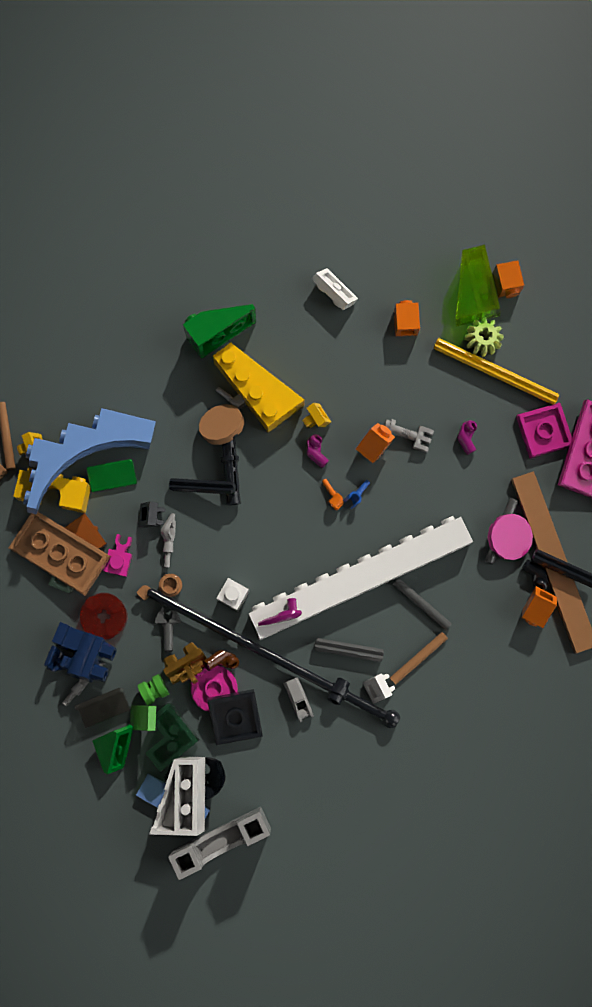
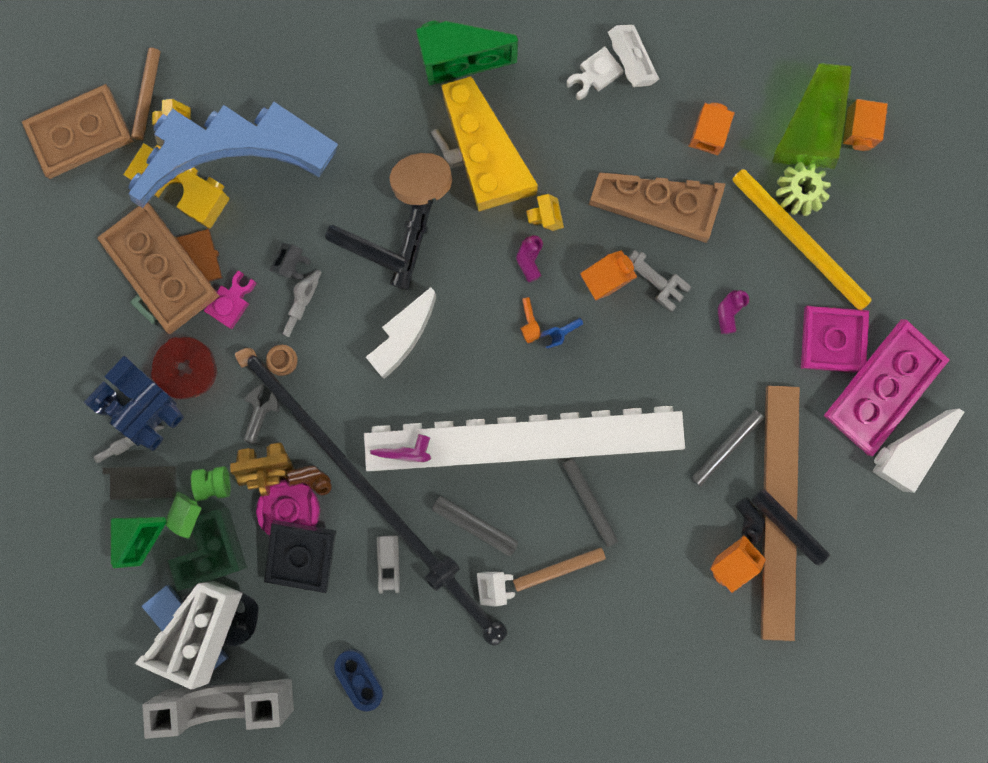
camera: 25 degrees right, 5 degrees up
(112, 475) = (259, 193): green slope -> none
(233, 594) = (354, 402): white brick -> none
(248, 535) = (404, 333): none -> white slope
(309, 788) = (357, 680): none -> dark blue plate
(314, 308) = (597, 71): none -> white plate
(400, 380) = (670, 205): none -> medium nougat wing
(510, 536) = (736, 459): dark pink tile -> none

